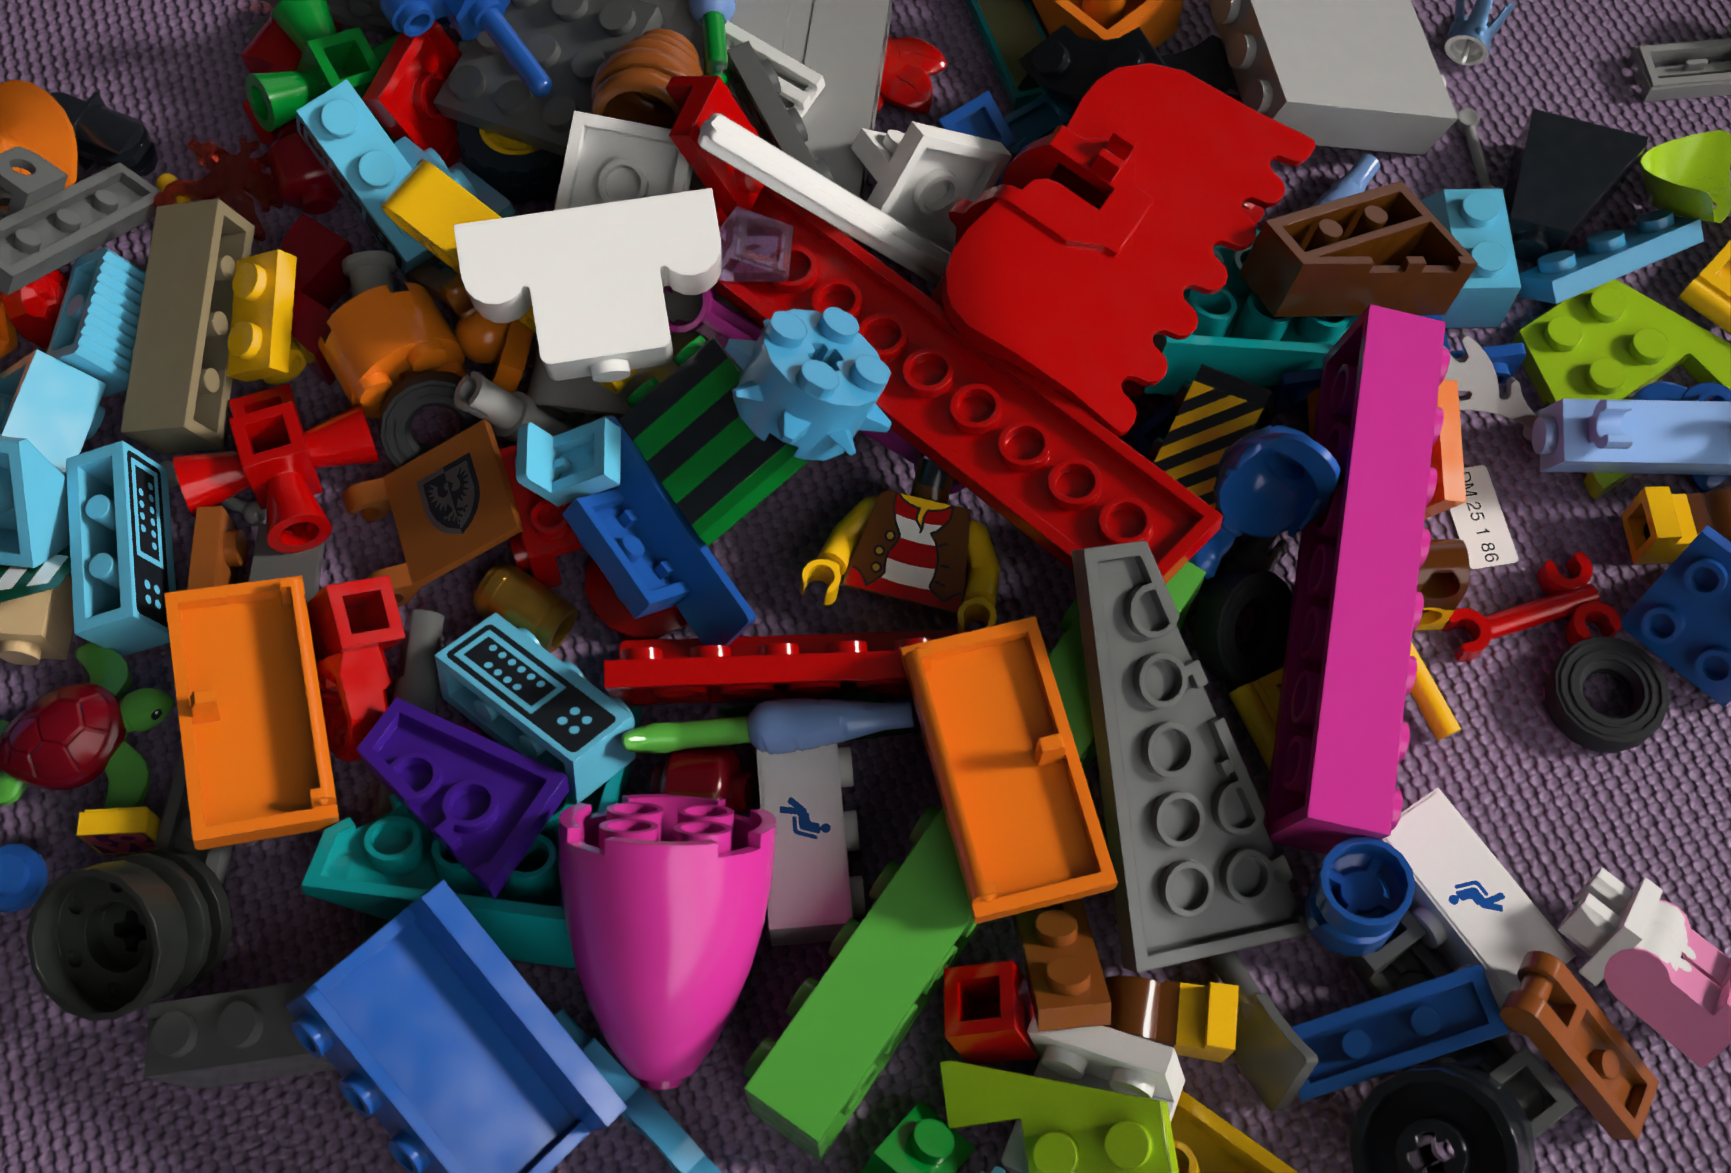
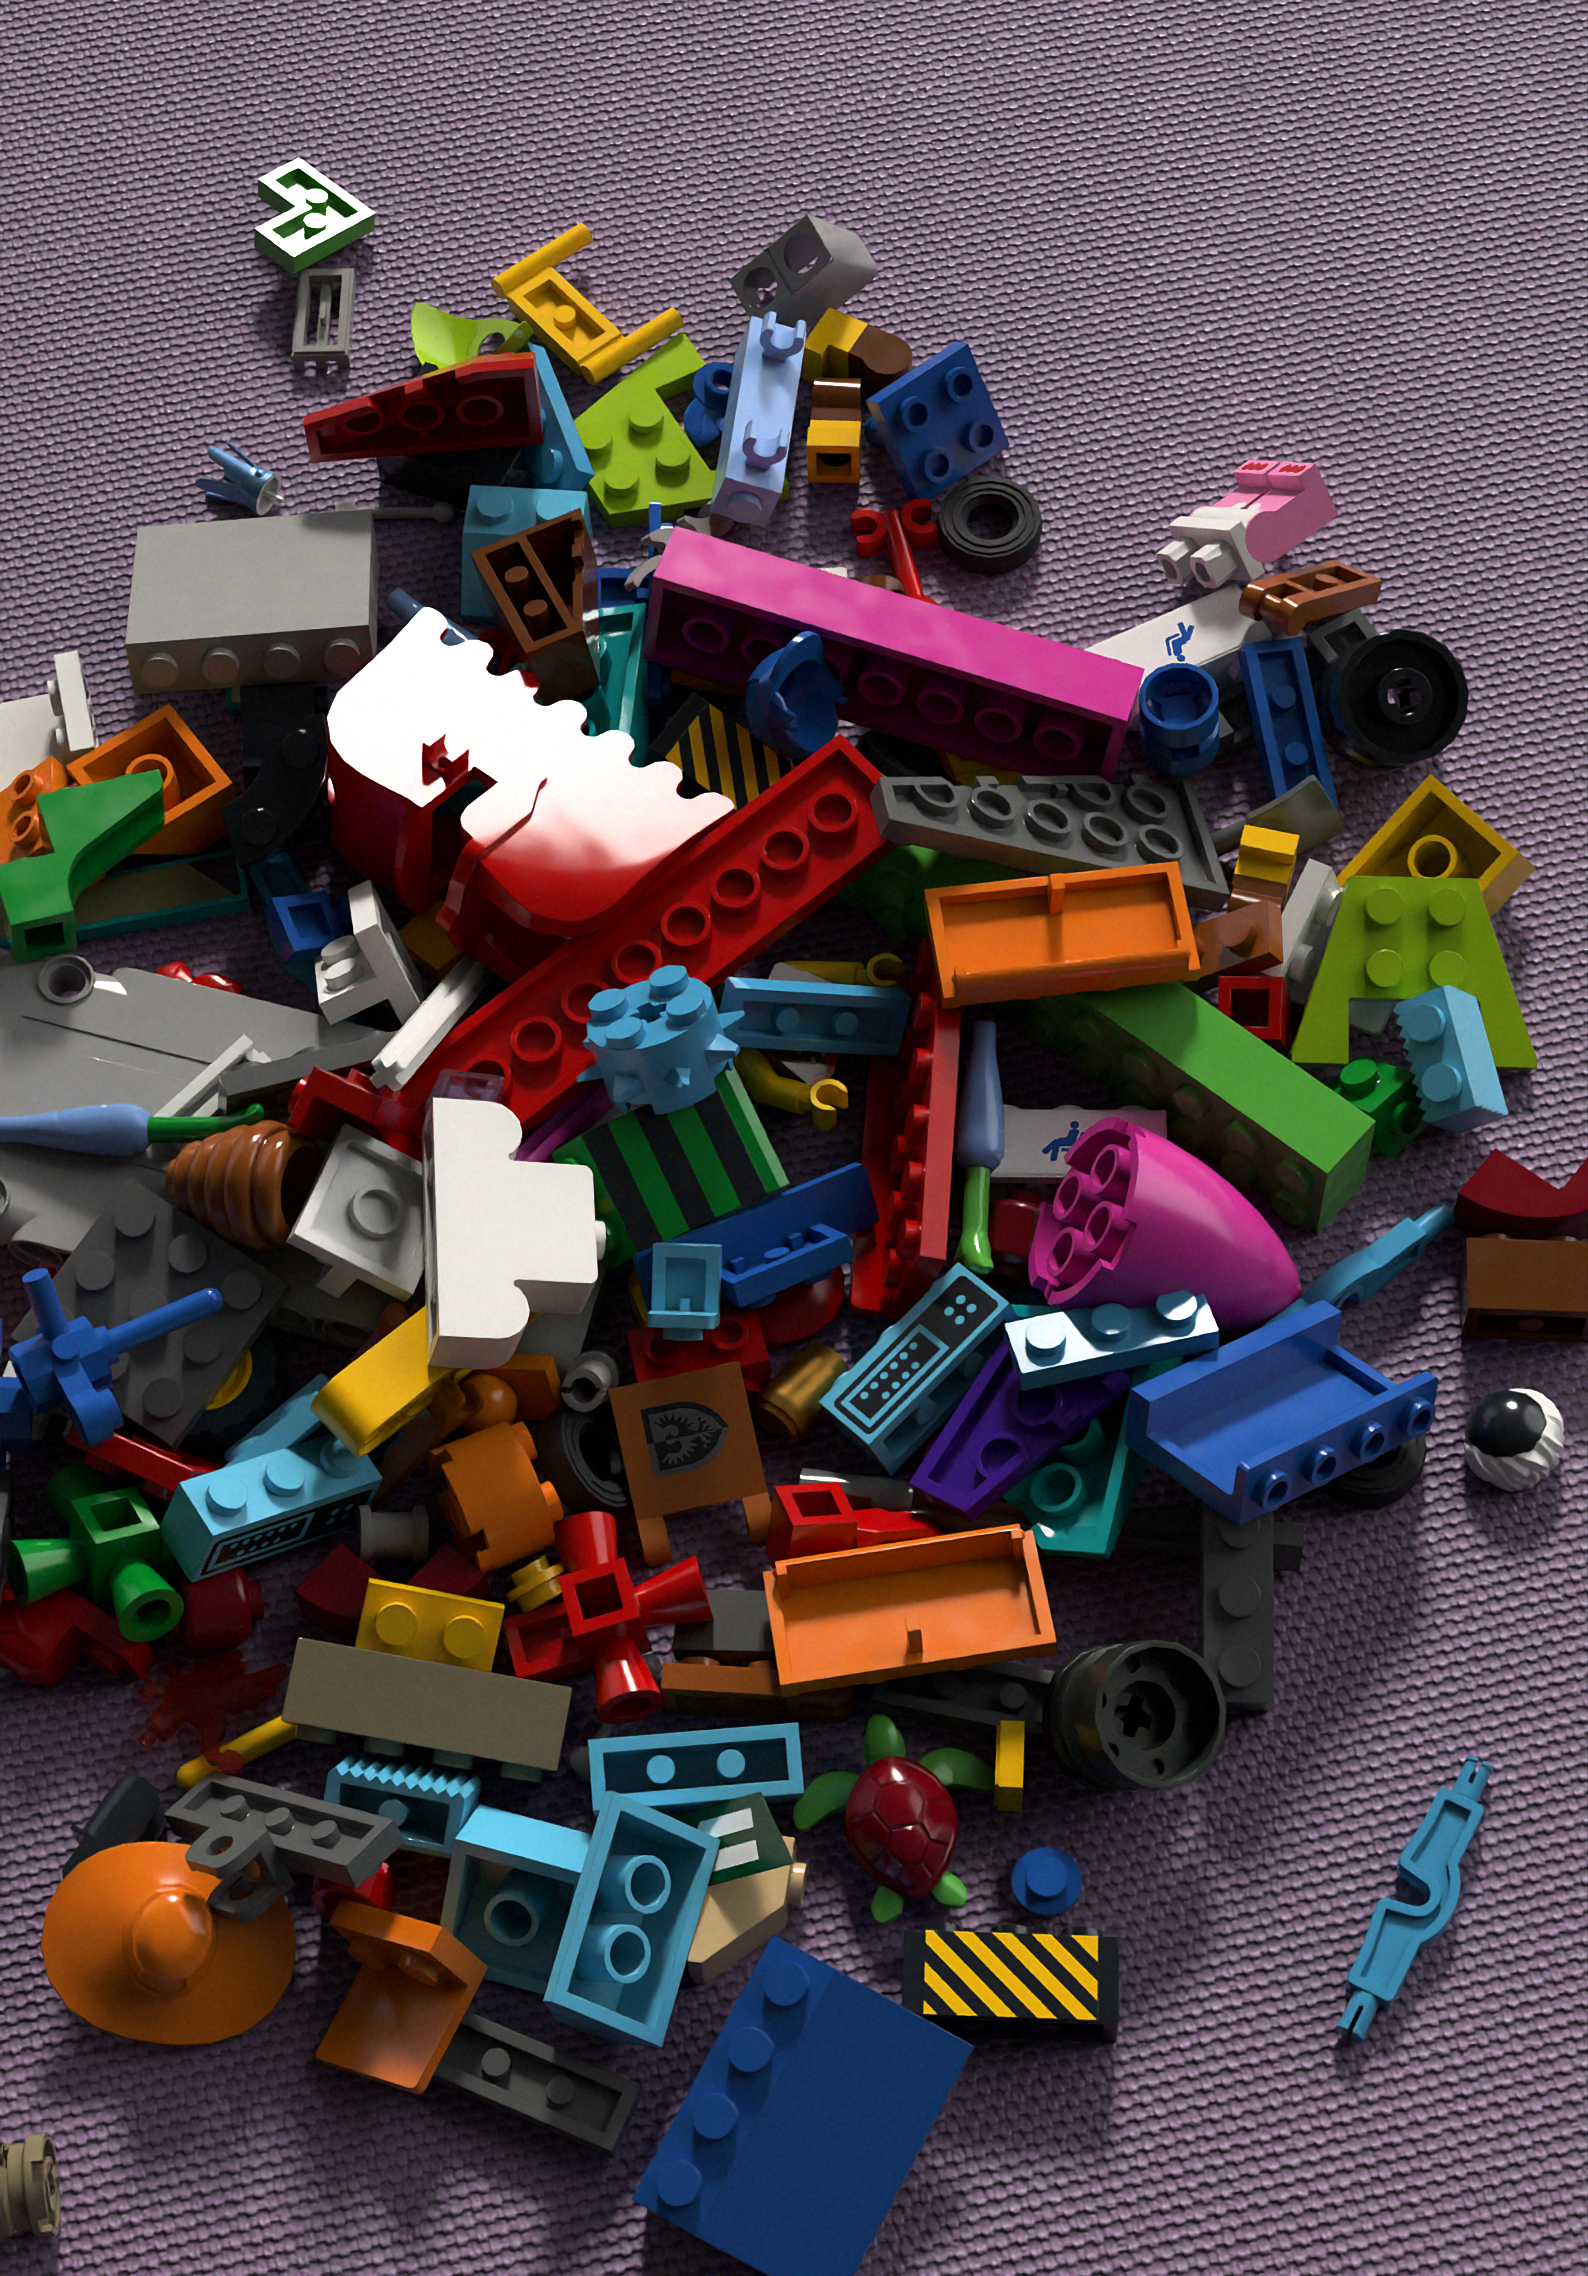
camera: 80 degrees left, 5 degrees down
(321, 403) = (536, 1584): none -> yellow plate
(524, 854) = (1108, 1338): none -> dark azure plate
(902, 544) = (816, 1016): none -> dark azure plate
(1586, 155) = (455, 408): none -> red wedge

